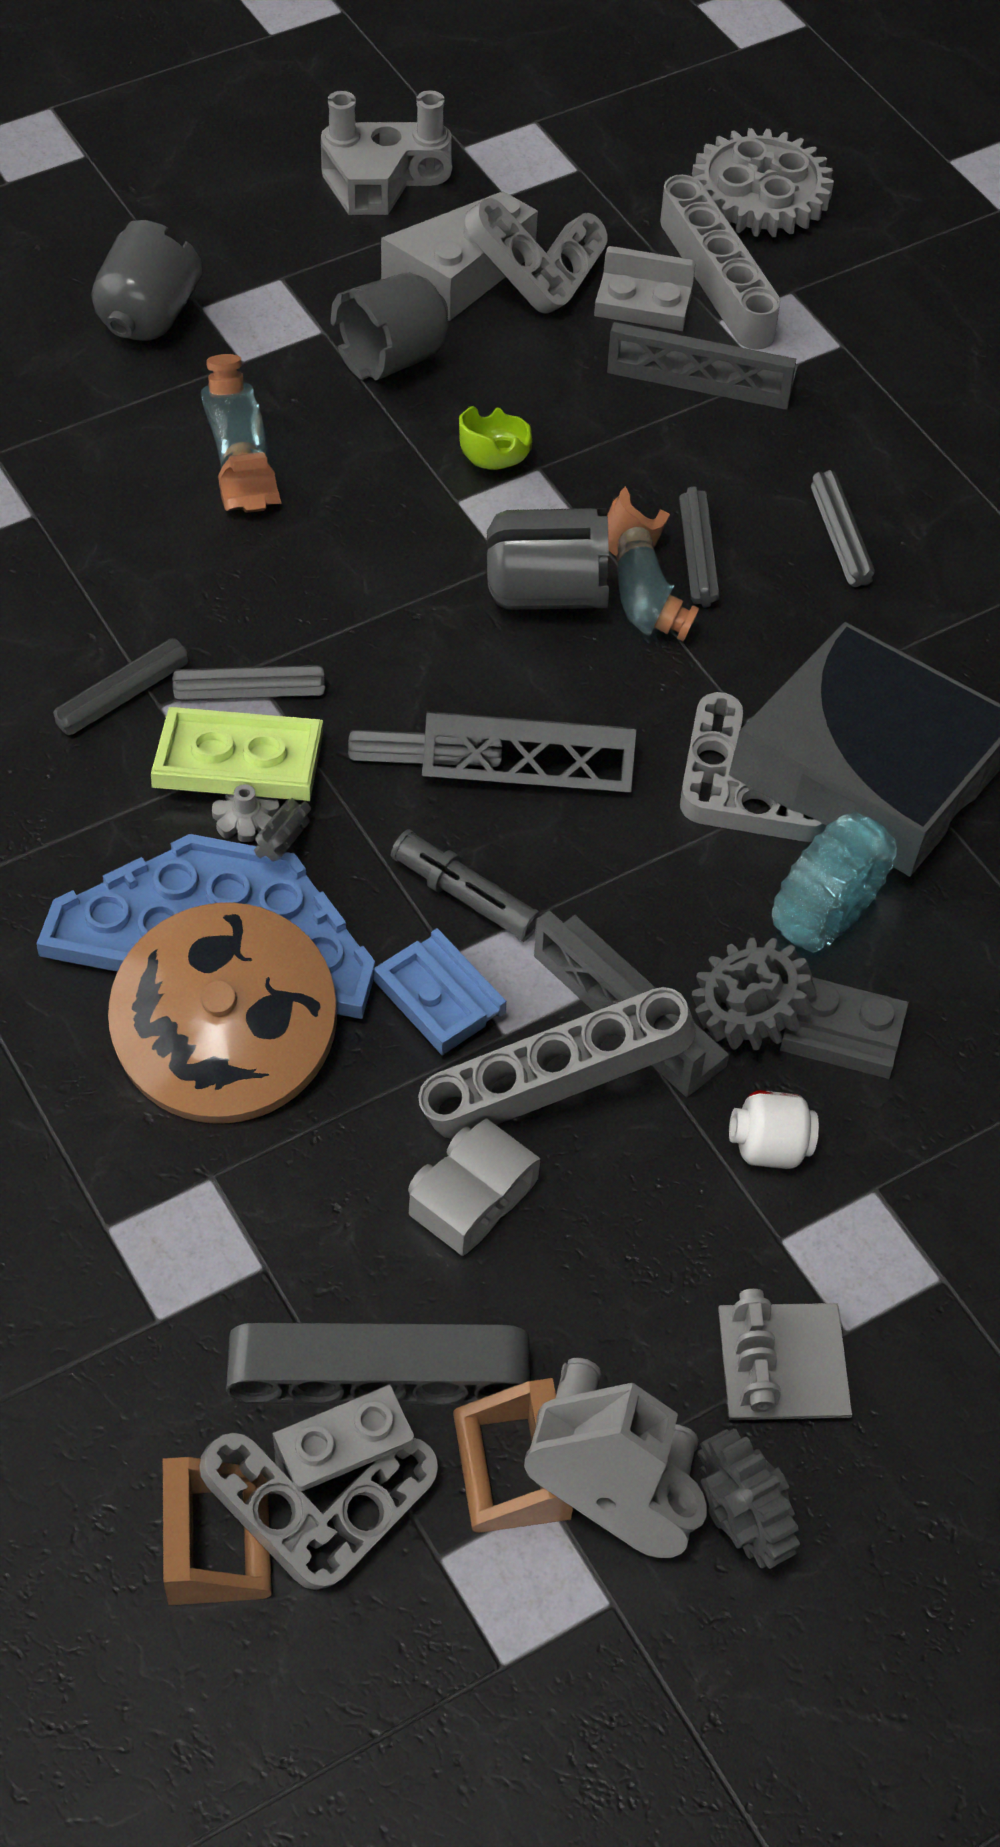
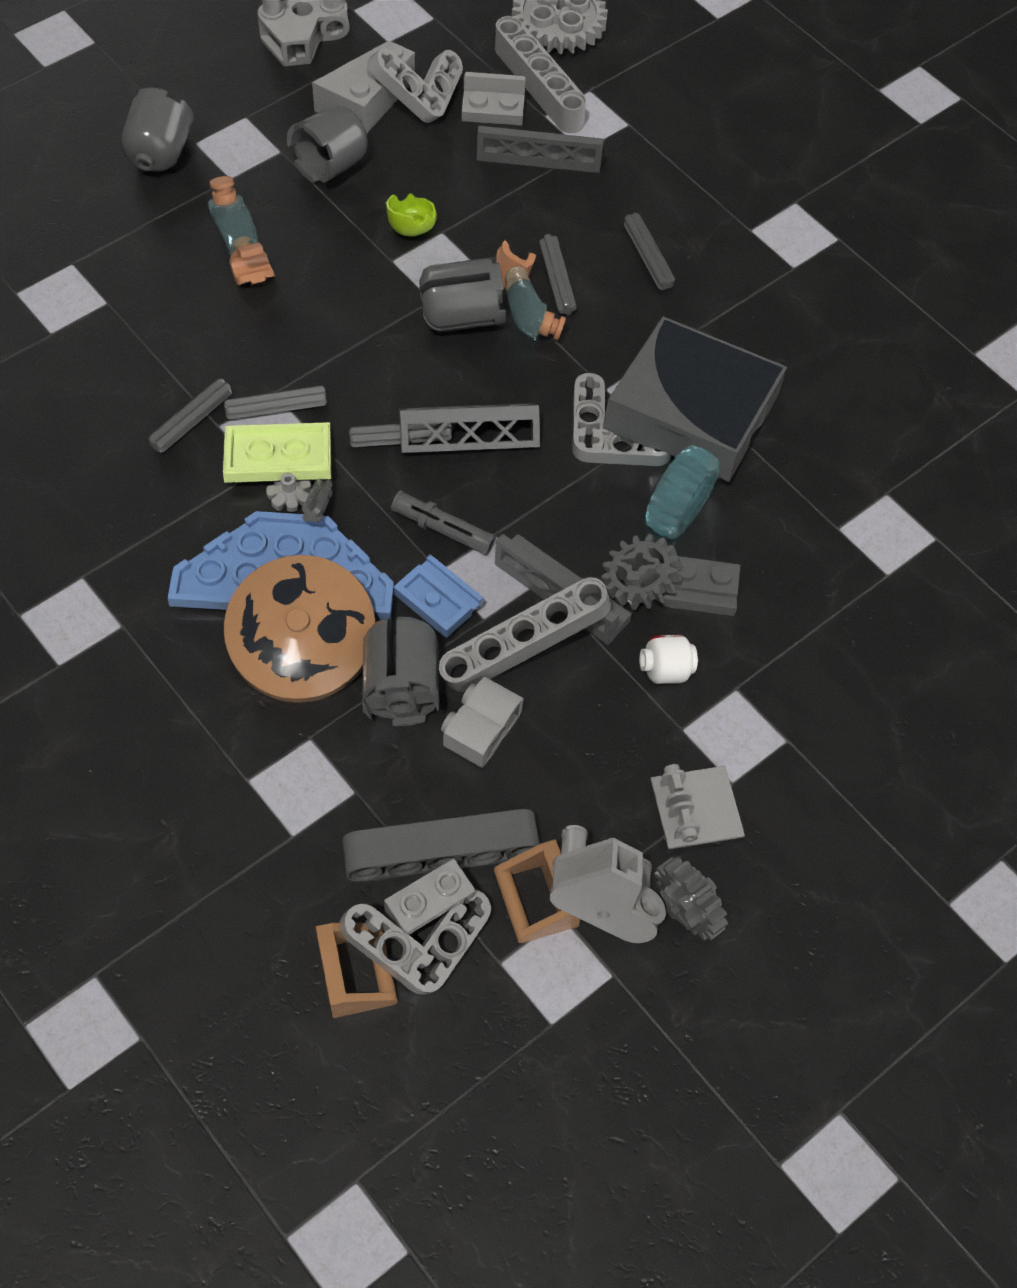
camera: 10 degrees left, 5 degrees up
(360, 1093) = (400, 671): none -> dark grey cylinder

